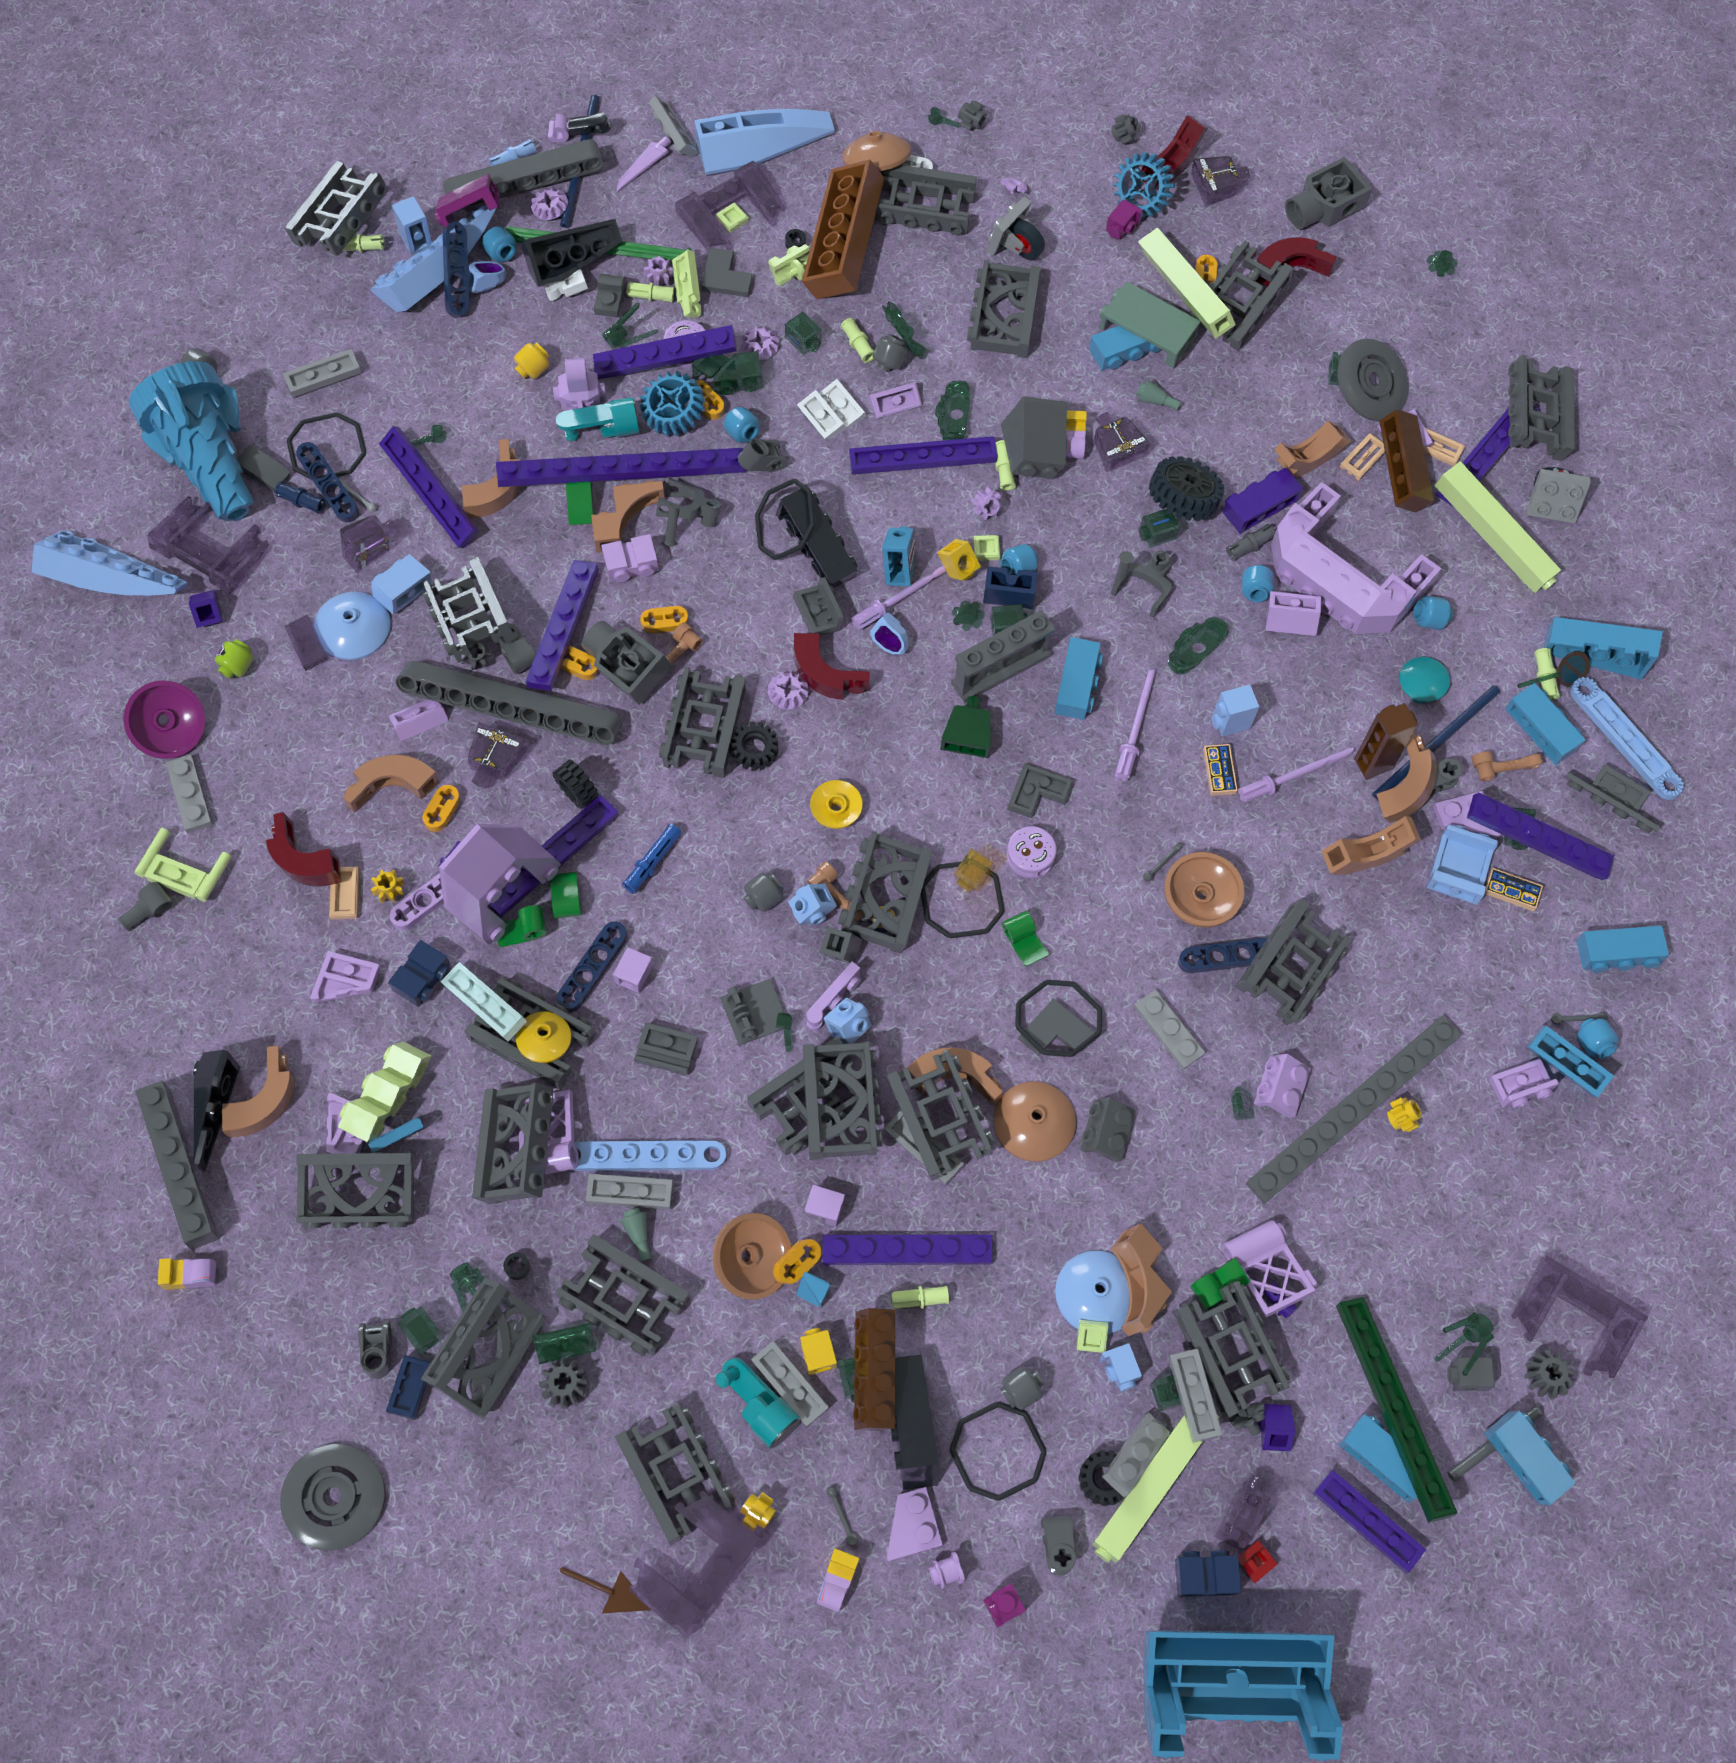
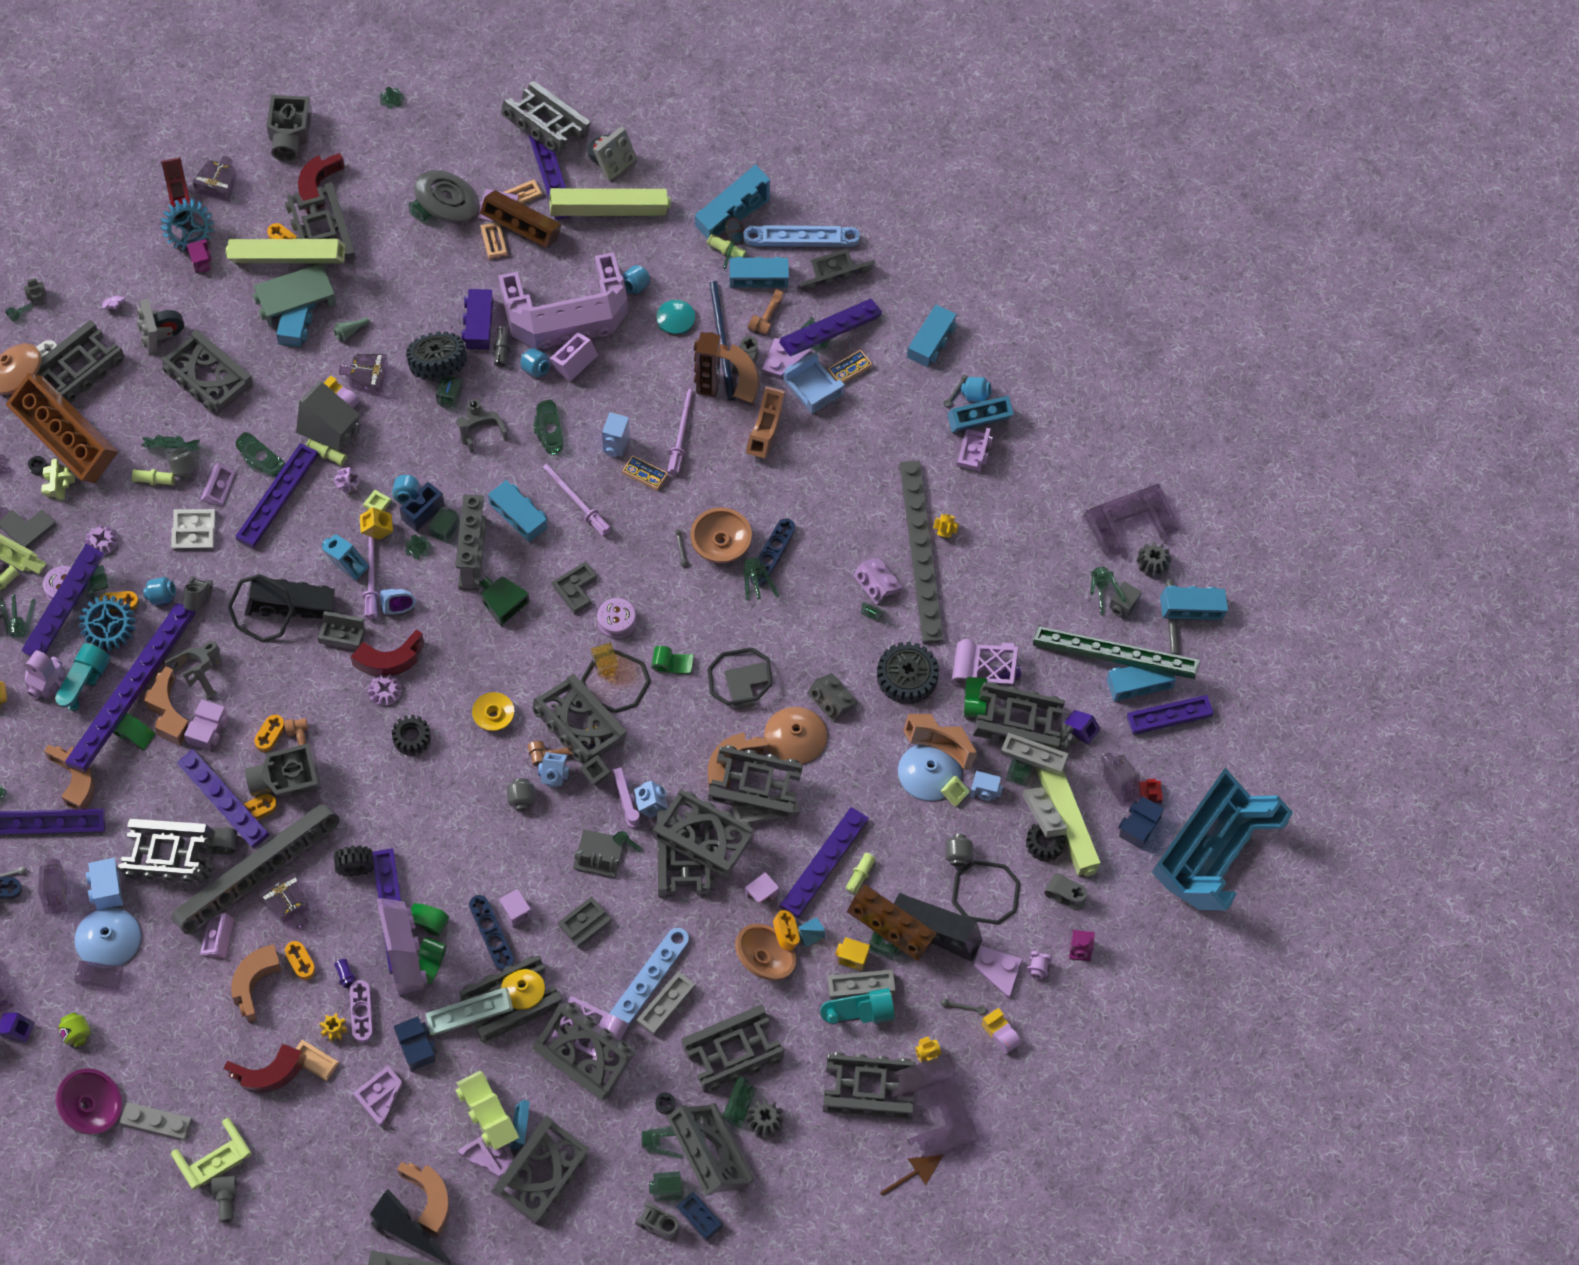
camera: 55 degrees left, 5 degrees down
(636, 1226) = (692, 1013): sand green cone -> none
(645, 867) = (445, 855): blue pin -> none
(722, 724) = (381, 745): dark grey fence -> none
(739, 374) = (118, 565): slope -> none
(803, 333) = (120, 507): brick -> none
(1125, 128) = (129, 206): dark grey gear -> none
(1169, 1029) = (794, 619): light grey plate -> none
(1186, 1208) = (903, 686): none -> wheel
(1190, 948) = (753, 570): none -> clear green plant
(1276, 949) = (792, 524): dark grey fence -> none
(1314, 451) = (467, 264): nougat arch -> none

